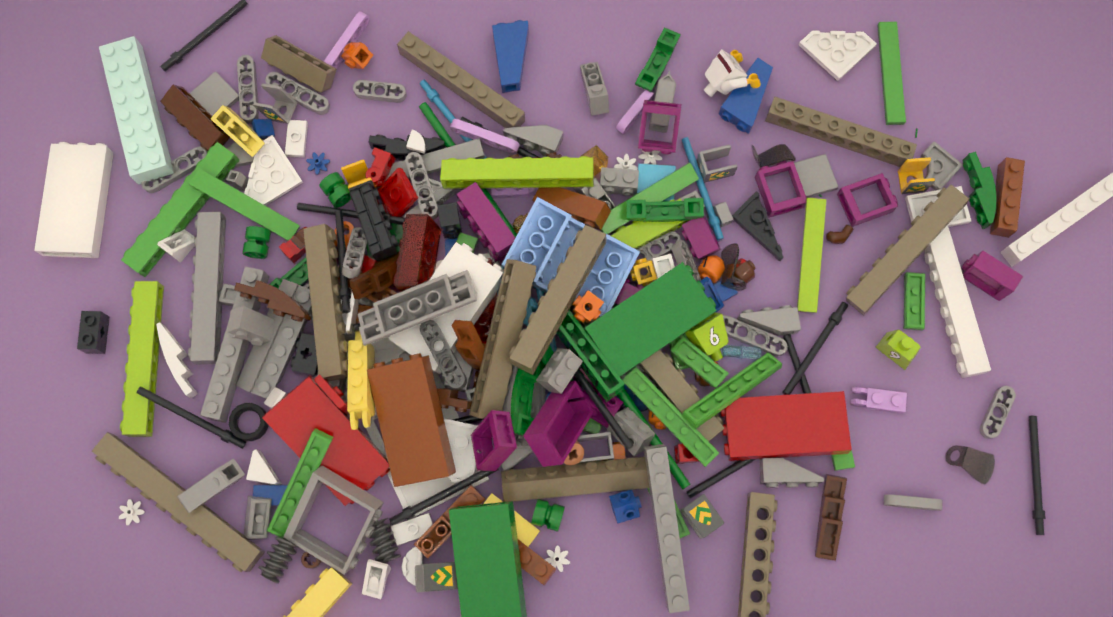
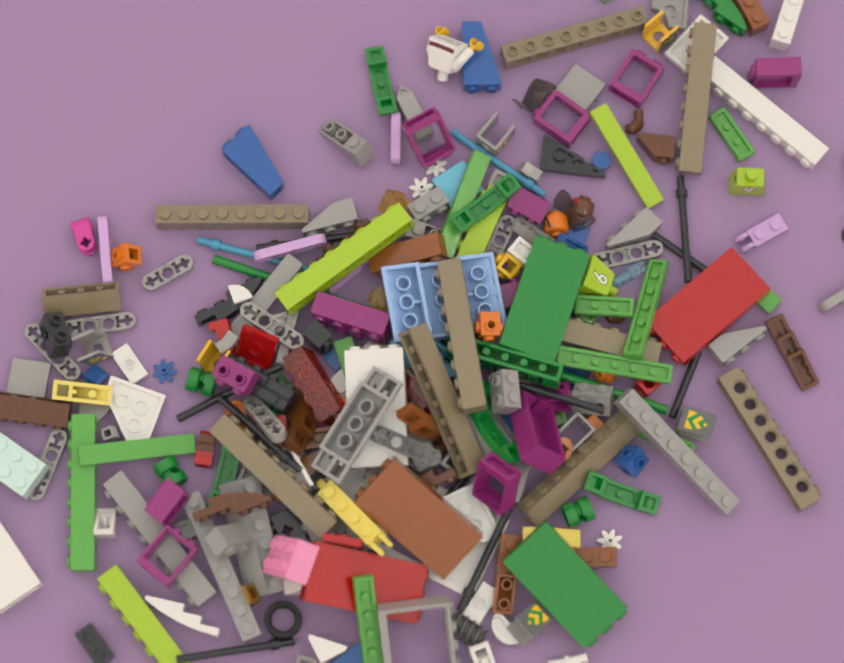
camera: 40 degrees left, 0 degrees up
(176, 303) = (155, 572): none -> magenta window
(229, 261) = (167, 502): none -> magenta brick
(236, 382) = (251, 594): none -> pearl gold slope
(256, 75) = (55, 335): none -> black brick
(280, 377) = (290, 559): none -> bright pink brick
(340, 19) = (84, 234): none -> dark pink piece
(357, 200) = (234, 375): none -> magenta brick
(376, 171) = (227, 342): none -> light grey piece
(596, 527) = (621, 494): none -> green slope
(788, 245) = (601, 160): none -> blue tile
(843, 266) = (658, 147): none -> reddish brown slope

